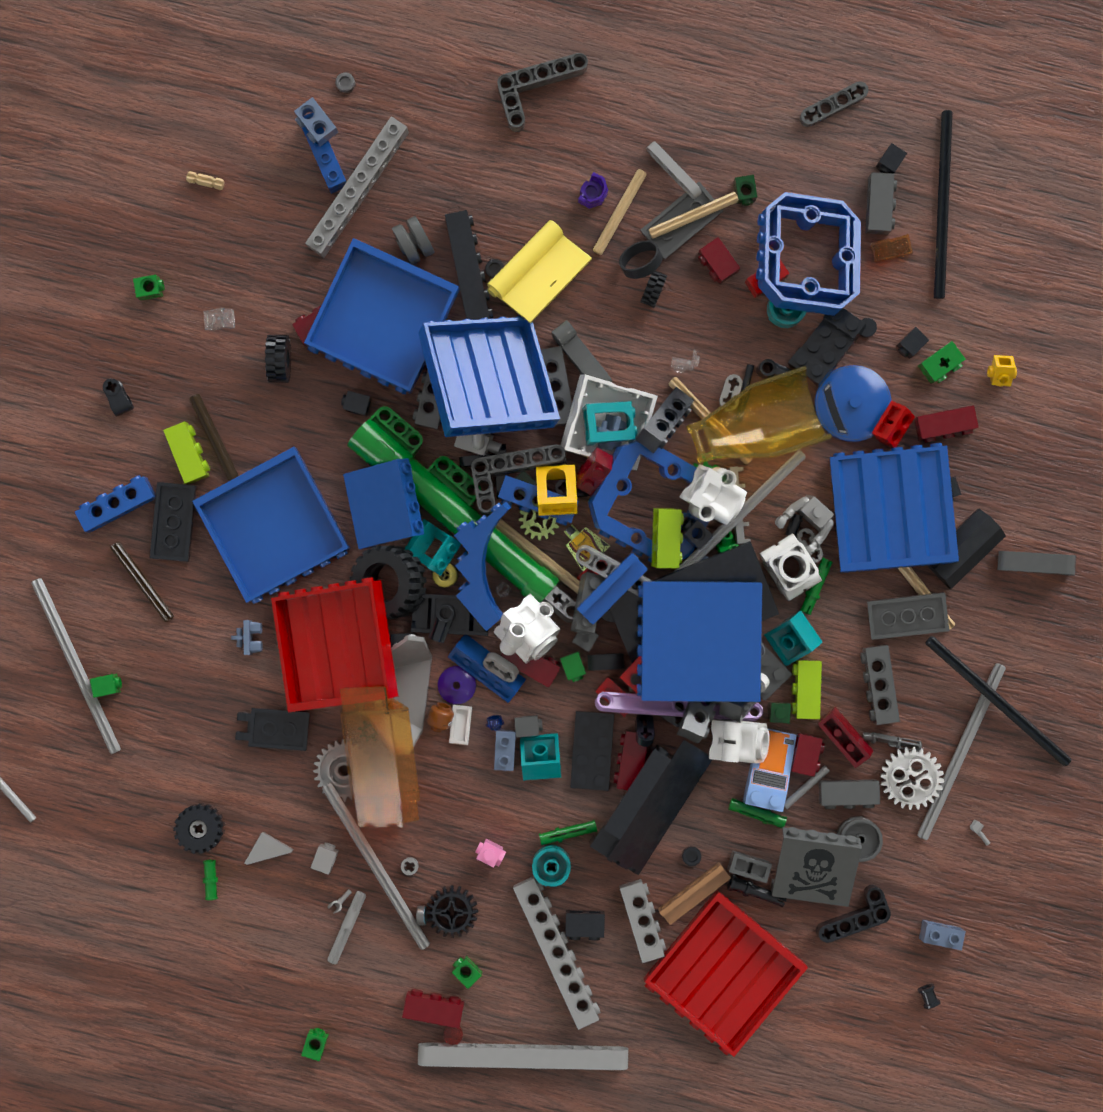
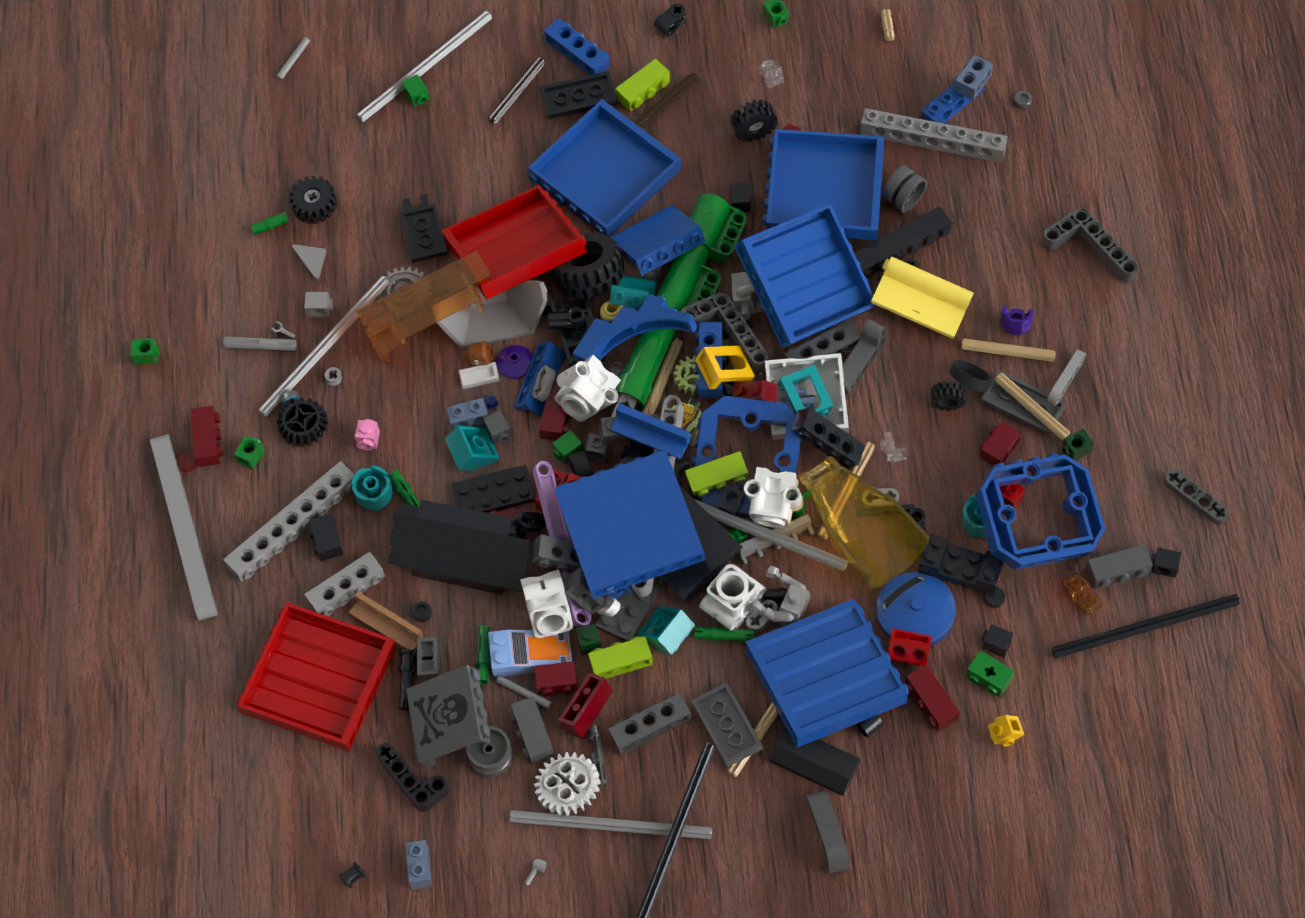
camera: 75 degrees right, 25 degrees down
(249, 629) = (497, 181): sand blue hips -> none

